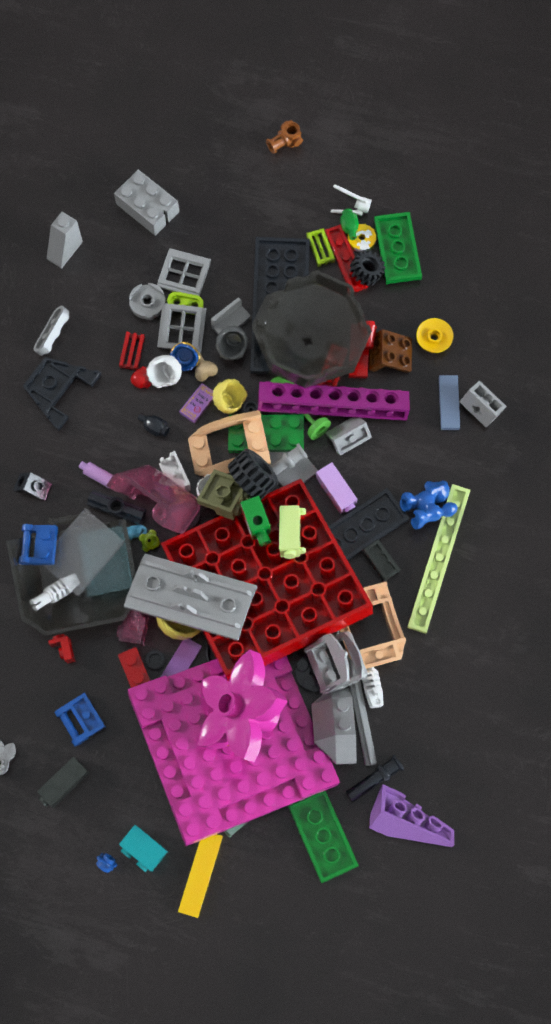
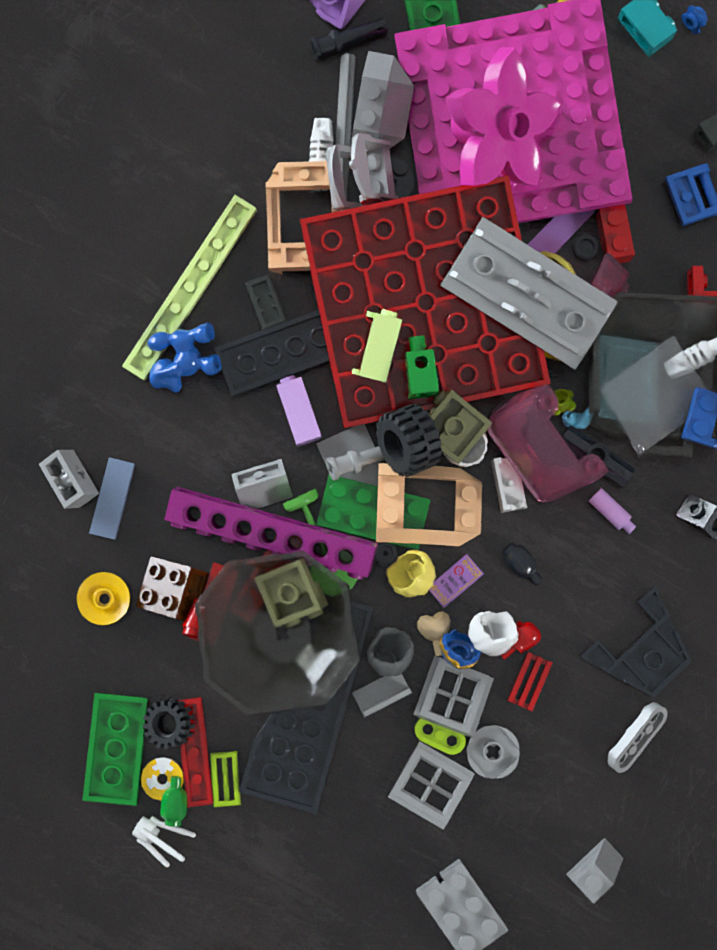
camera: 170 degrees left, 10 degrees up
(308, 357) = (291, 593): none -> olive plate

